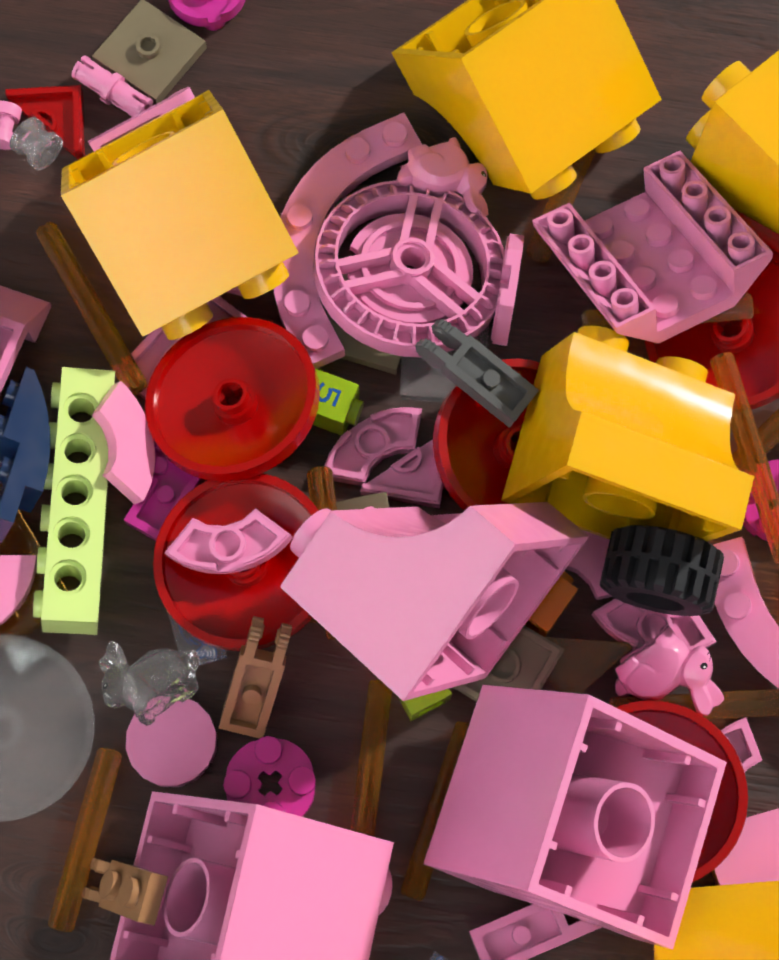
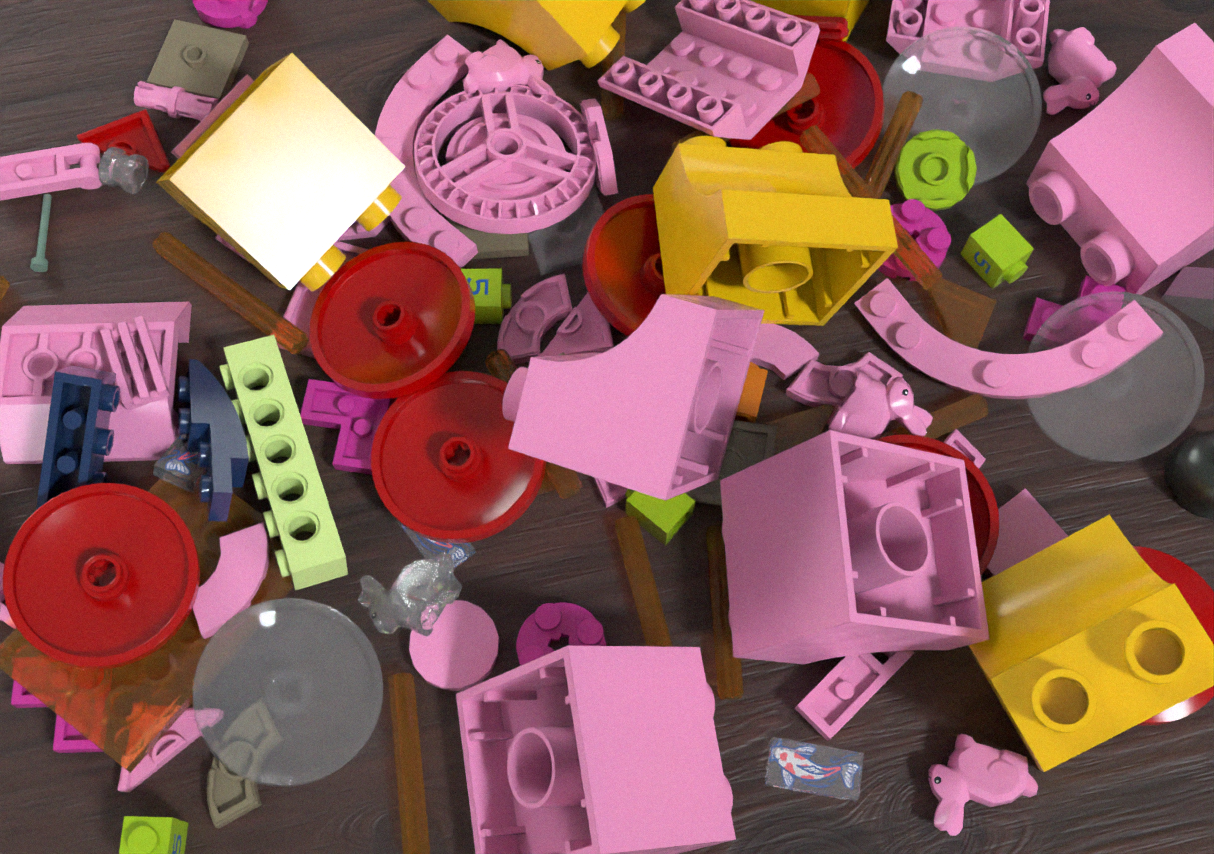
camera: 20 degrees left, 5 degrees down
(127, 890) = (470, 789): medium nougat hinge -> none
(128, 442) = (311, 390): bright pink tile -> none
(228, 547) = (440, 447): bright pink tile -> none
(255, 682) = (513, 558): medium nougat hinge -> none
(478, 372) = (604, 214): dark grey hinge -> none
(662, 570) = (835, 323): black tyre -> none

